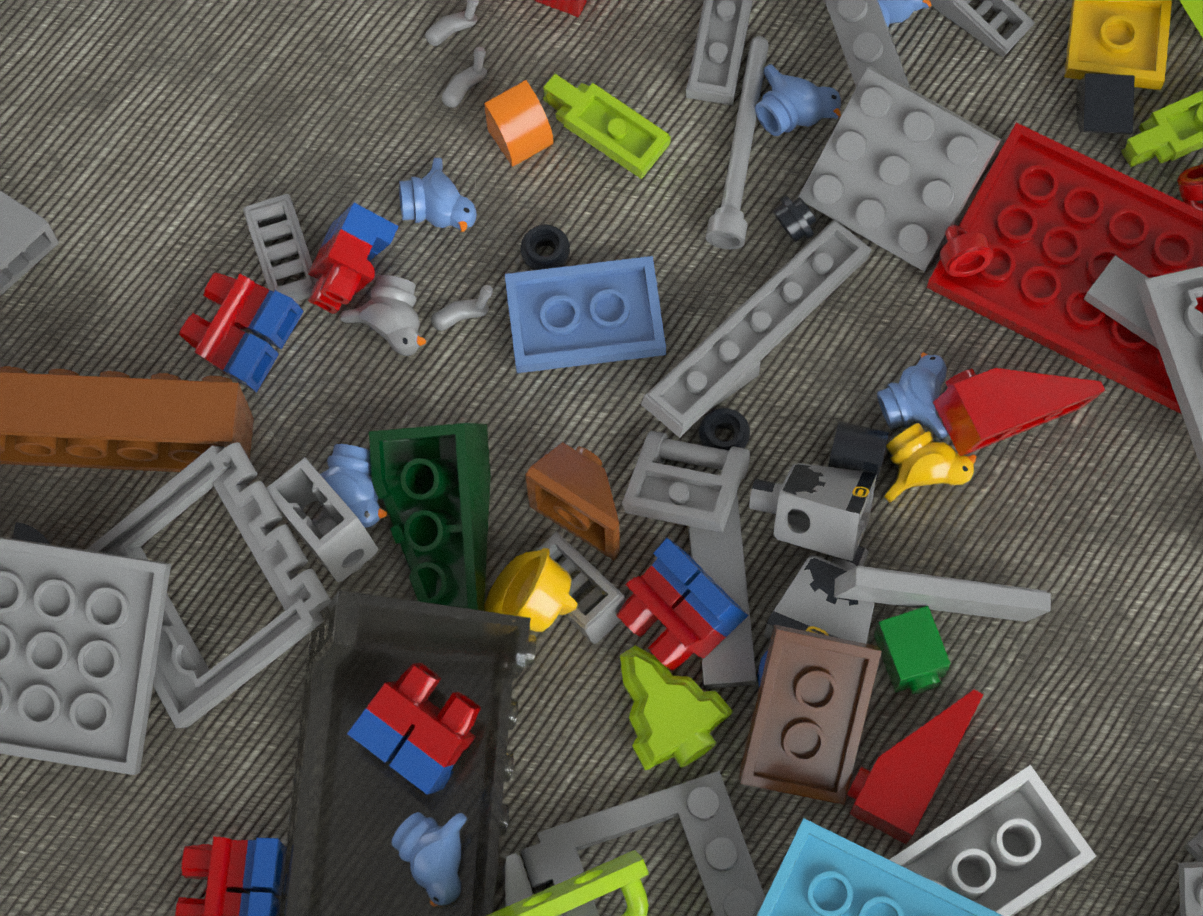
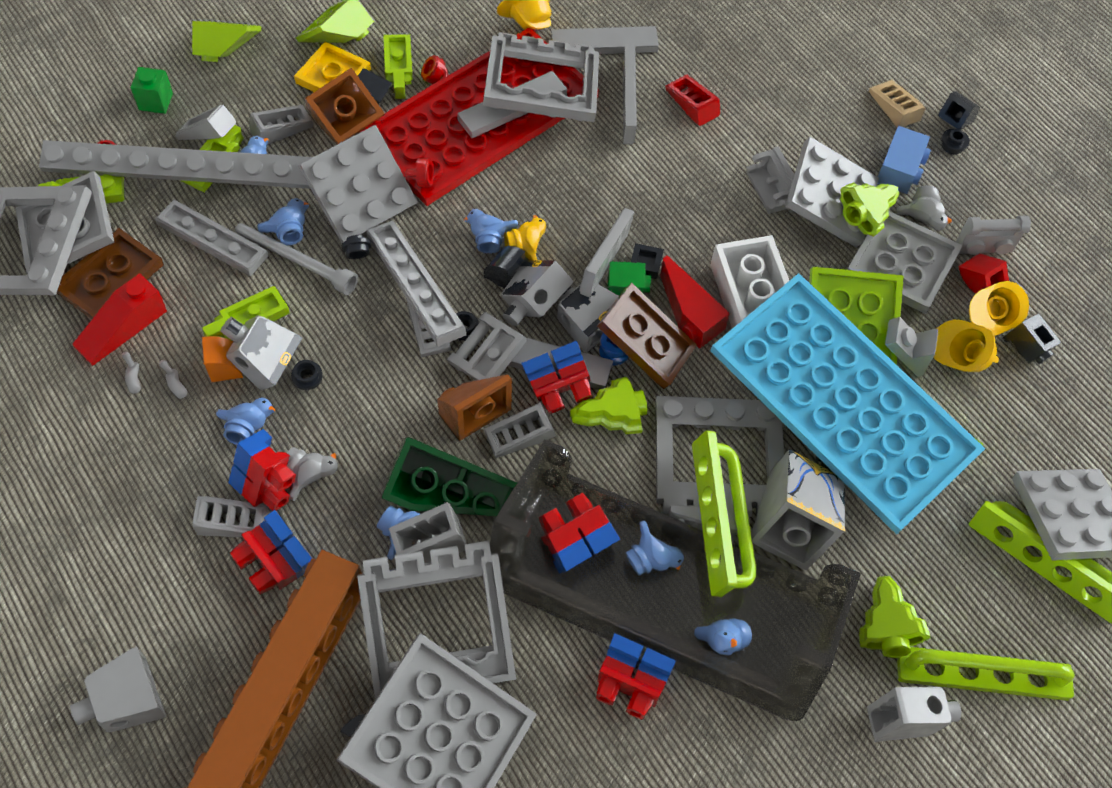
camera: 75 degrees left, 10 degrees down
(462, 310) = (321, 432): light grey piece -> none
(533, 589) = (516, 446): yellow piece -> none
(547, 165) = (260, 349): none -> torso
(585, 314) = (359, 368): medium blue plate -> none
(974, 666) = (651, 256): none -> black plate
(1007, 402) = (516, 189): red slope -> none
(1037, 83) = (343, 107): none -> dark orange slope

